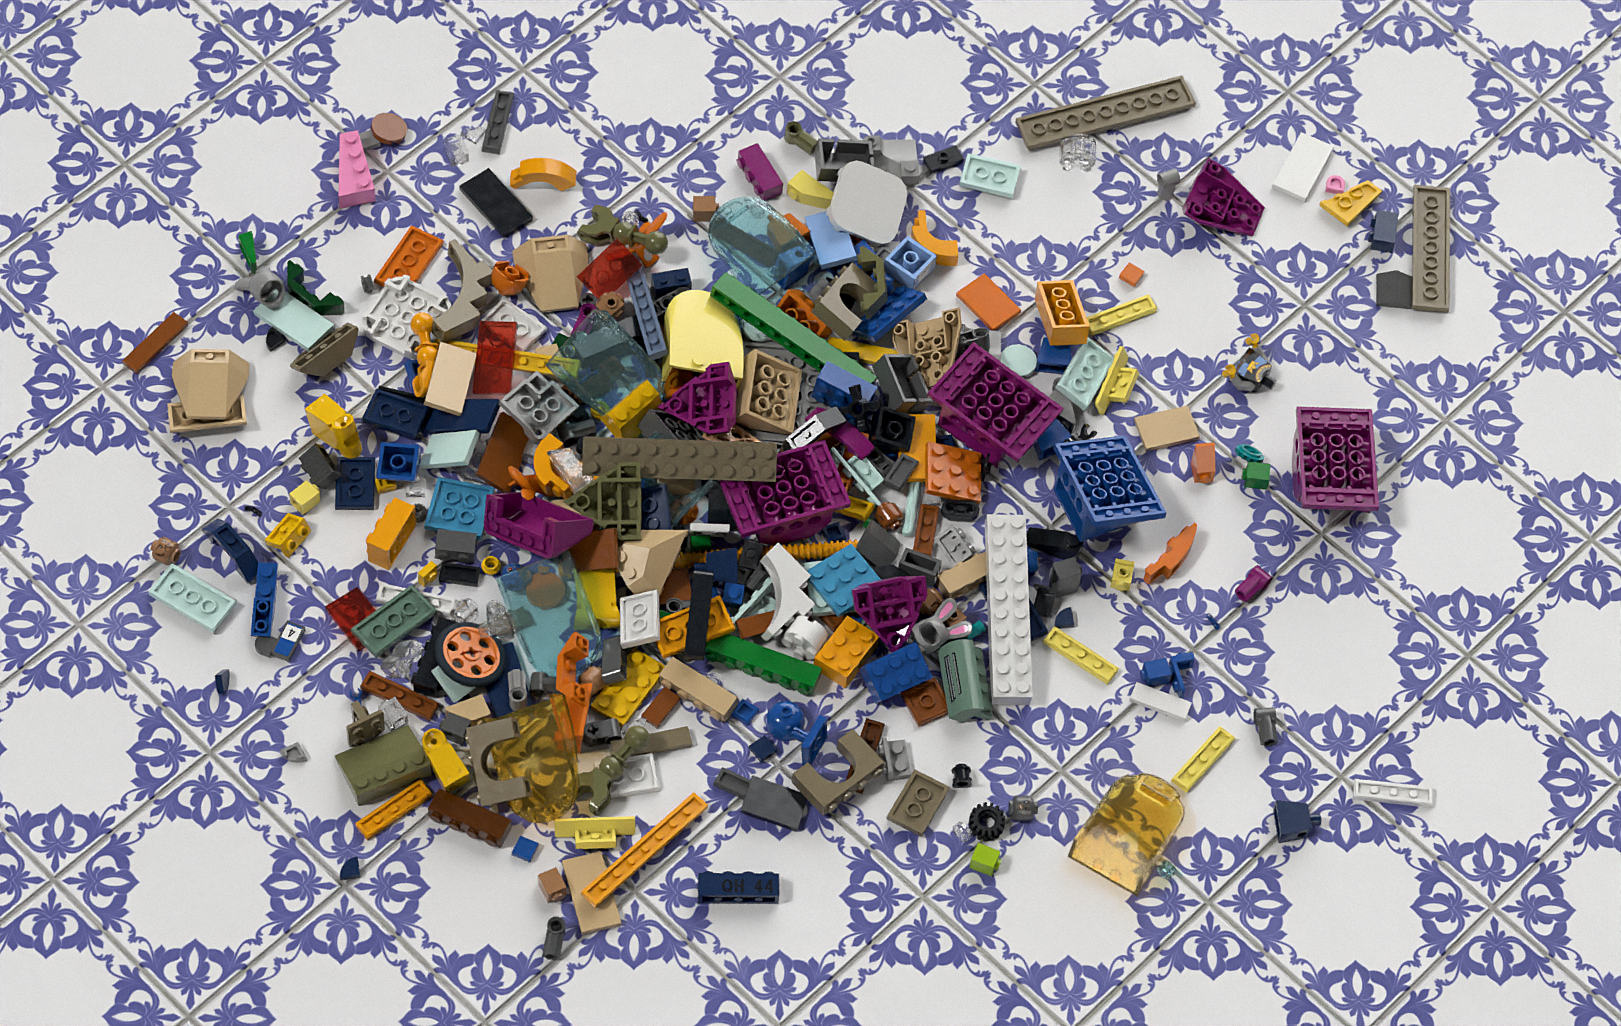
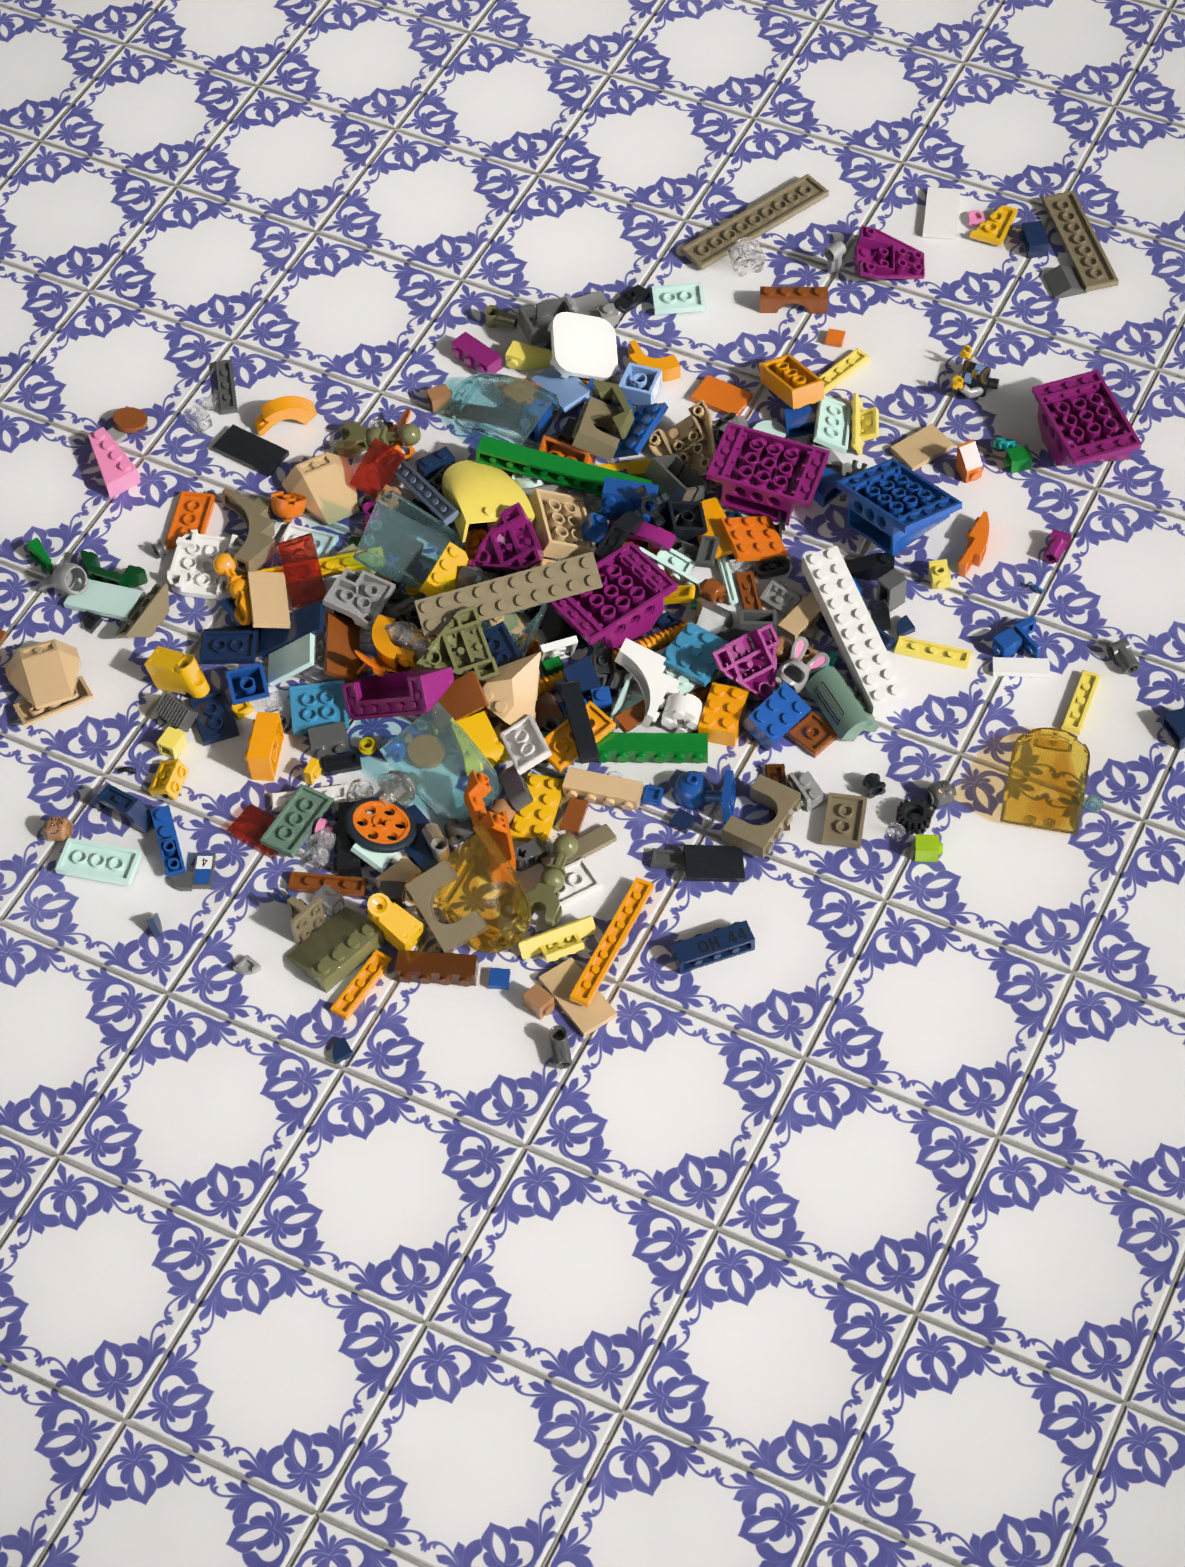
camera: 10 degrees left, 5 degrees down
(417, 634) = (323, 823): none -> bright pink tile
(798, 409) = (594, 528): none -> blue brick
(1125, 223) = (812, 298): none -> dark orange arch

